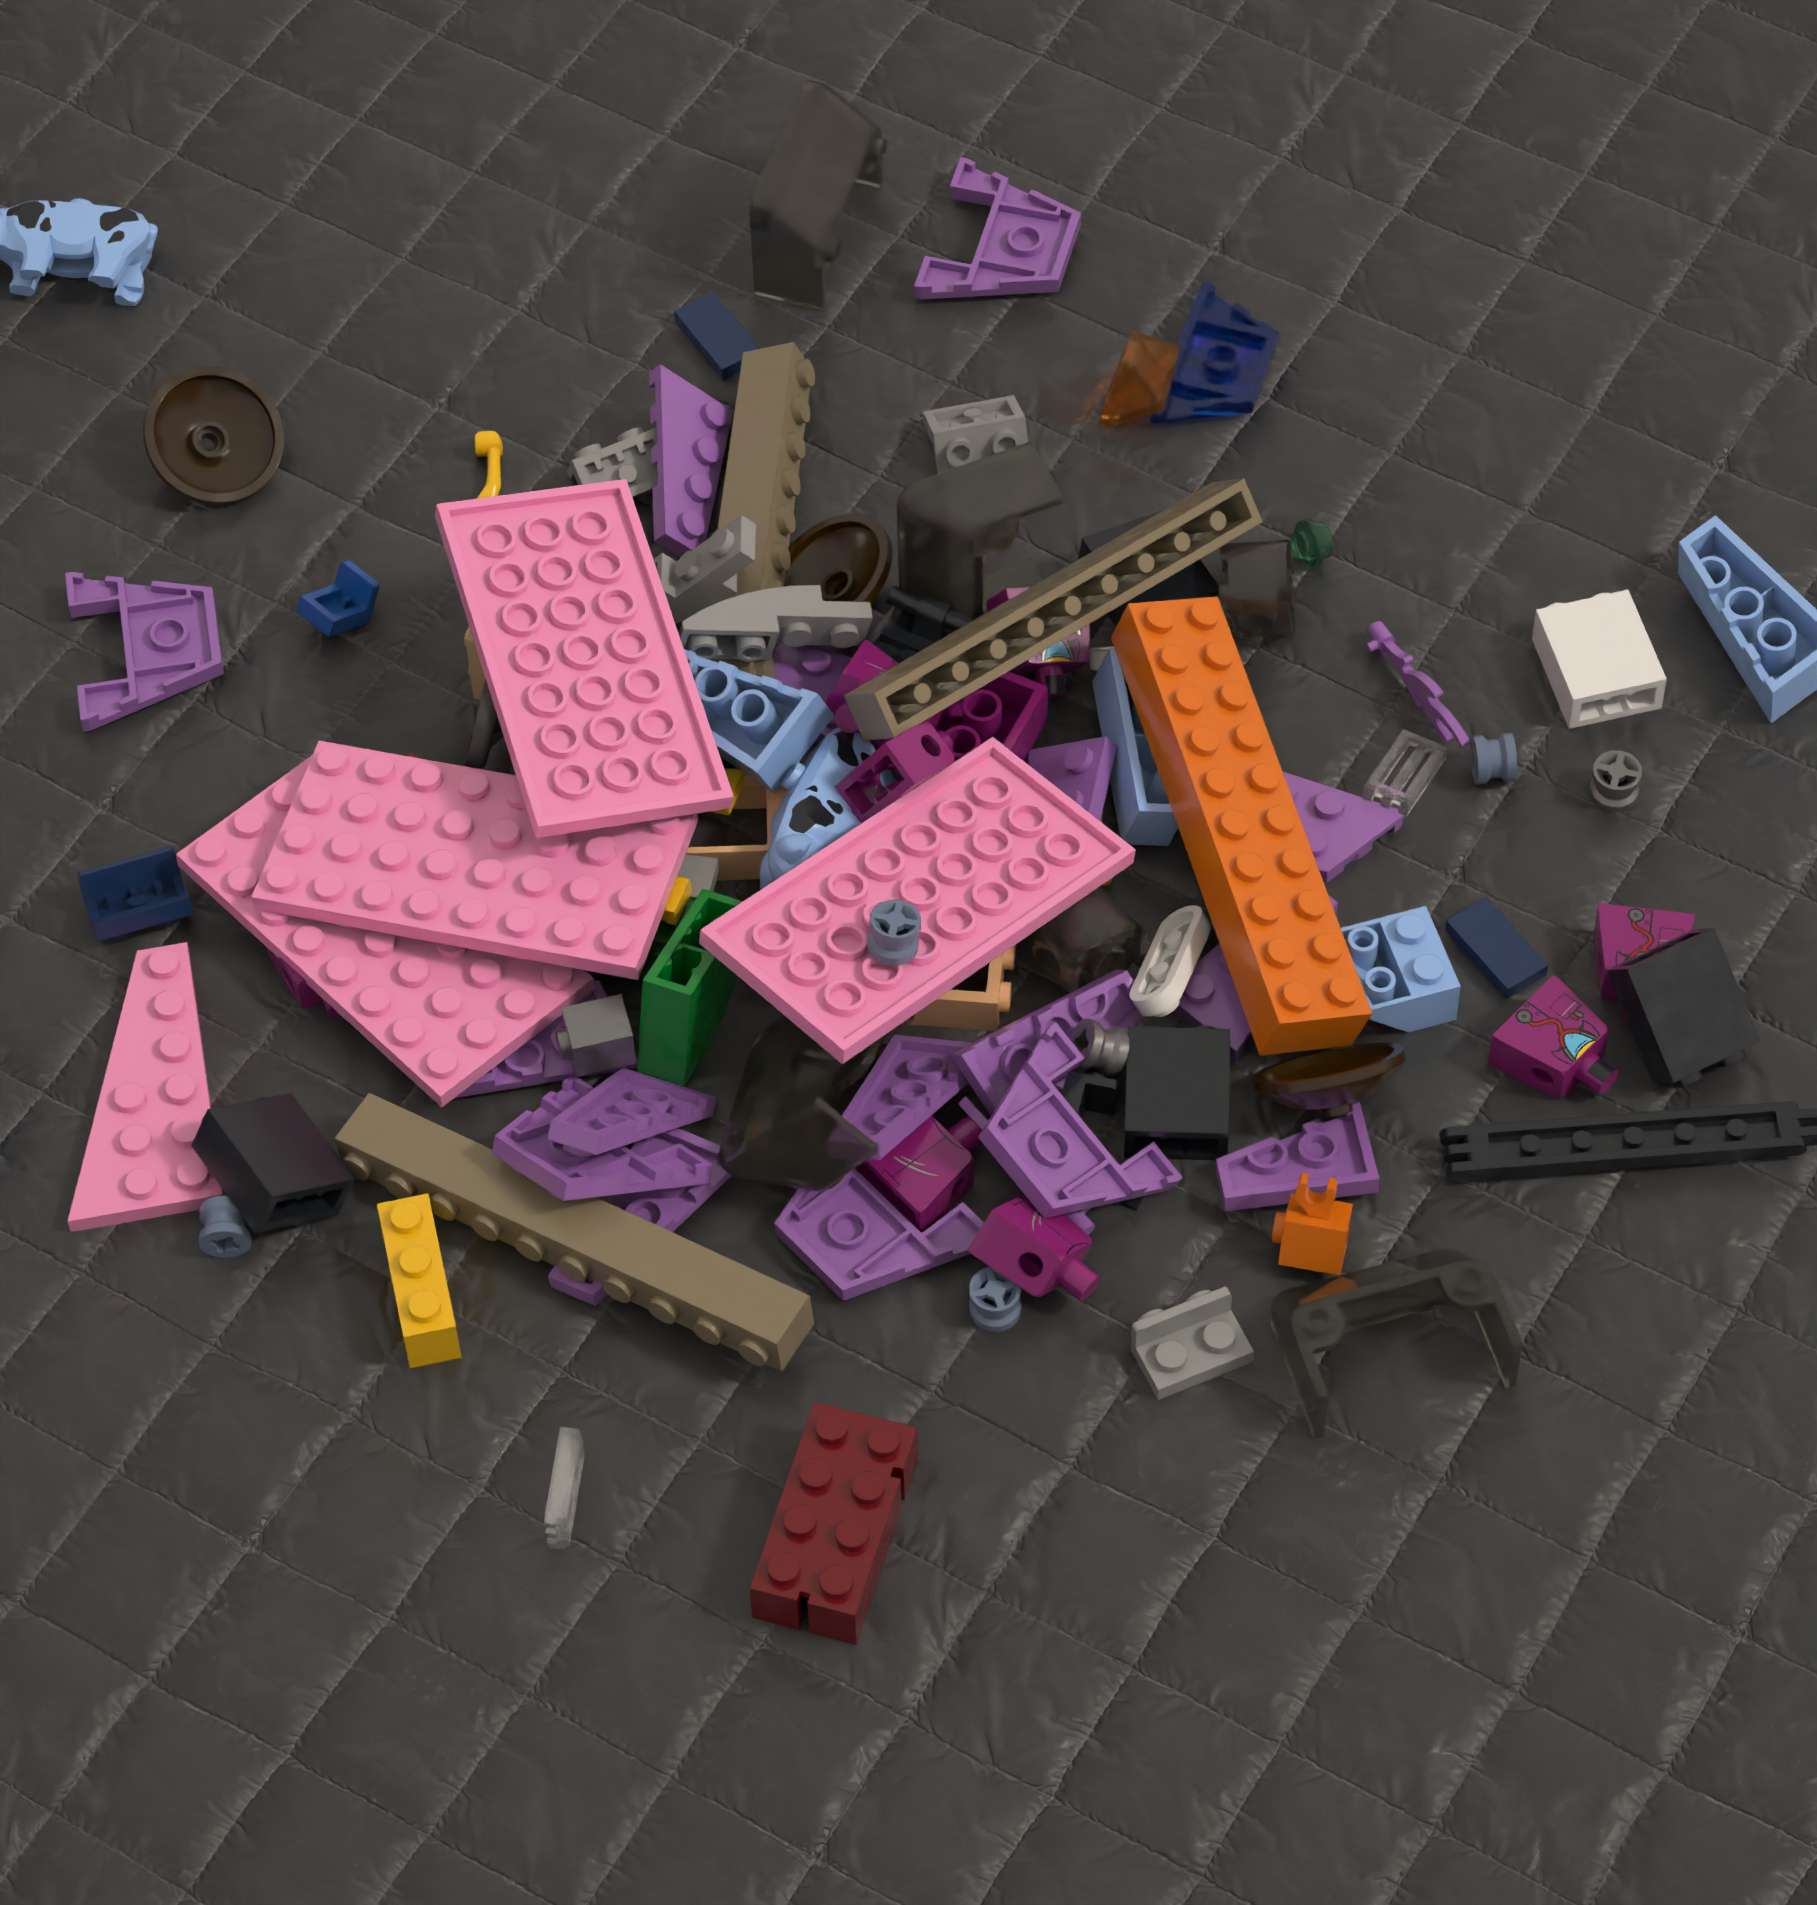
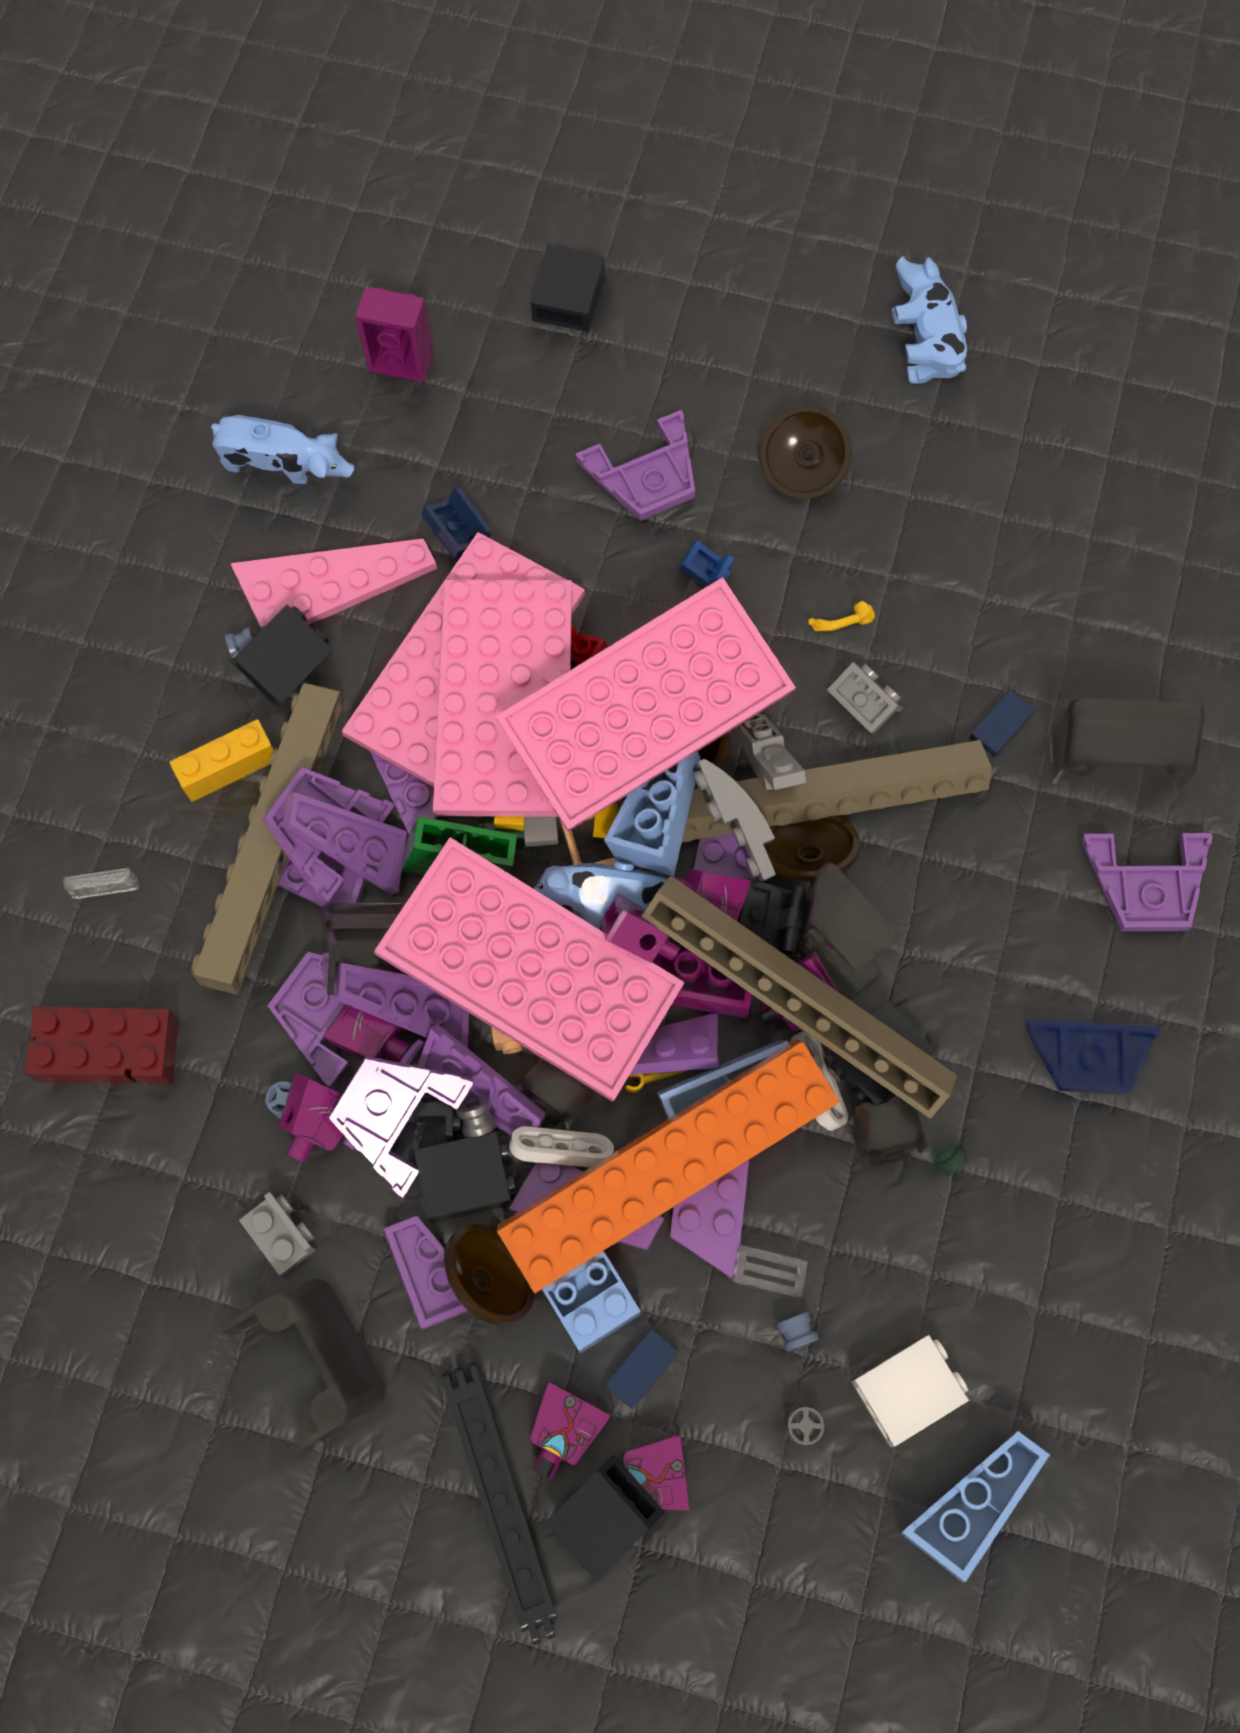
camera: 75 degrees right, 15 degrees up
(596, 1035) = (406, 804): flat silver brick -> none
(687, 457) = (884, 731): medium lavender wing -> none
(894, 932) = (475, 950): sand blue wheel -> none
(974, 430) = (972, 908): light grey bracket -> none
(1140, 380) = (1049, 1007): clear orange slope -> none
(1313, 1229) = (370, 1293): orange brick -> none
(1420, 686) = (880, 1230): medium lavender piece -> none

